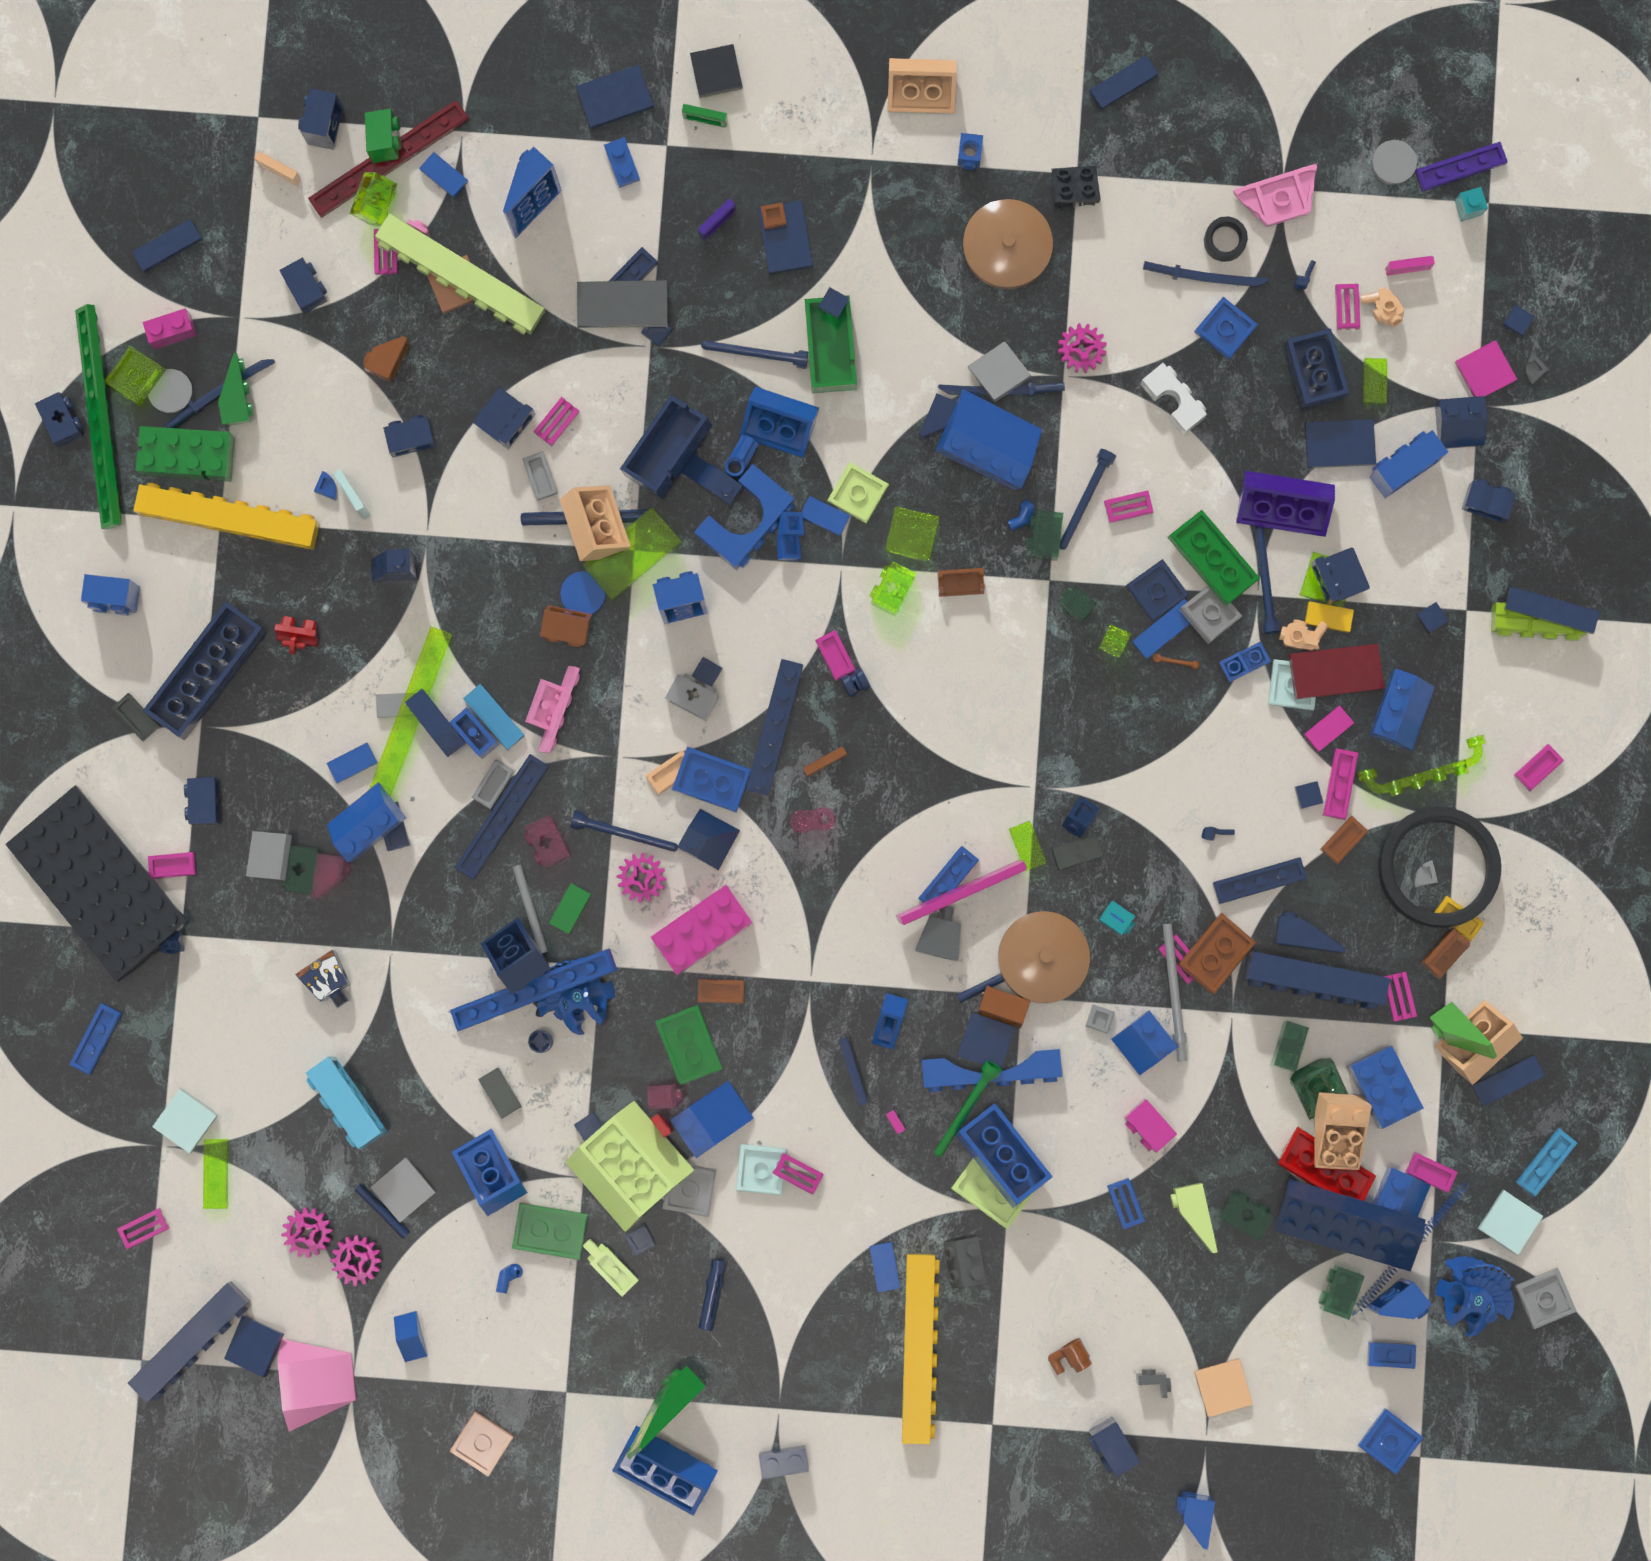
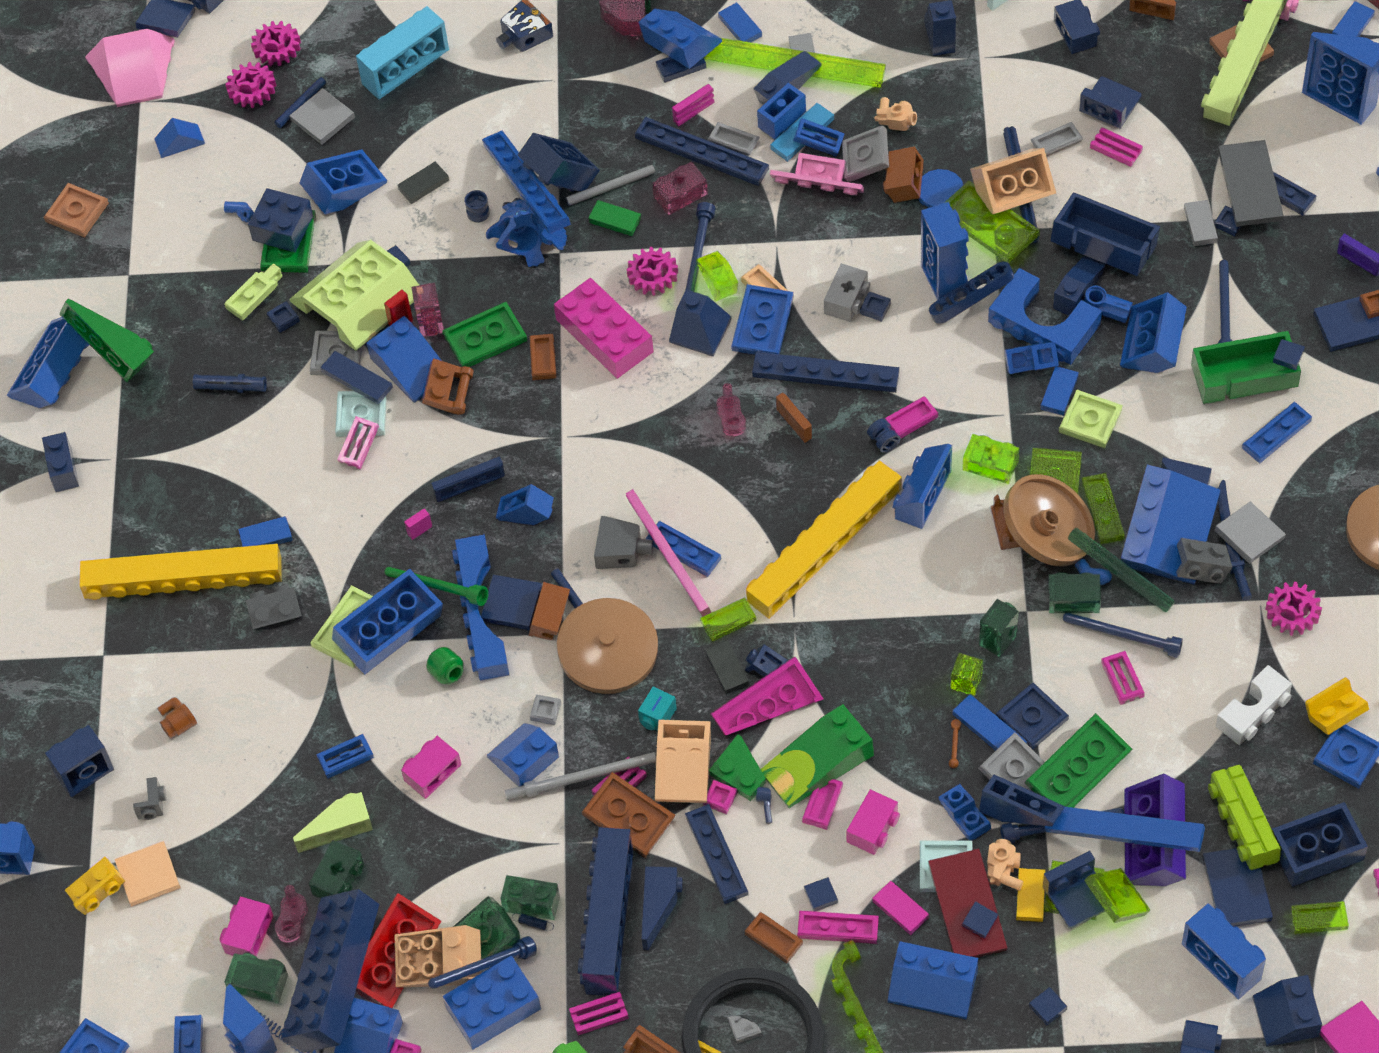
camera: 85 degrees right, 25 degrees down
(448, 819) = (693, 105): none -> dark pink tile
(494, 623) = (897, 117): none -> light nougat piece
(498, 718) = (817, 140): none -> blue tile
(535, 658) = (865, 153): none -> light grey tile
(536, 1236) = (280, 220): none -> dark blue brick
(655, 358) = (1200, 223): none -> light grey tile
(655, 816) = (718, 275): none -> clear neon green slope
(708, 581) = (941, 309): none -> dark blue beam
(726, 1171) = (356, 377): none -> dark blue tile
(745, 1091) = (439, 386): none -> dark orange plate
(894, 329) = (1277, 432): none -> blue tile
(917, 653) = (923, 485): none -> blue slope
(954, 496) = (1103, 508): none -> clear neon green tile
(959, 750) = (823, 539): none -> yellow brick
(974, 545) = (1043, 514): none -> medium nougat dish
(1026, 491) = (1120, 569): none -> clear green axle
(1028, 416) = (1203, 561): none -> dark grey bracket
(1049, 1106) = (445, 665): none -> green head
(1113, 811) = (771, 696): none -> dark pink wing
(1176, 900) = (682, 761): none -> light nougat slope
(1180, 852) = (738, 769): none -> green wing
(1181, 782) = (819, 755): none -> green slope
(1184, 329) = (1335, 706): none -> yellow bracket
(1205, 872) = (720, 796): none -> dark pink tile
(1219, 783) = (822, 804): none -> dark pink tile
(1233, 1435) = (95, 886): none -> yellow bracket
(1249, 741) = (872, 822): none -> dark pink brick
(1254, 612) = (1017, 804): none -> dark blue slope
(1274, 1257) = (292, 913): none -> clear pink piece
(1283, 425) = (1244, 817): none -> lime brick
(1291, 527) = (1129, 829): none -> blue tile
(1291, 1299) = (246, 927): none -> dark pink brick
(1308, 1045) = (532, 921): none -> dark blue piece
(1337, 1055) = (522, 949): none -> dark blue piece
(1345, 544) = (1117, 895): none -> clear neon green tile
(1355, 662) = (980, 920): none -> dark blue tile

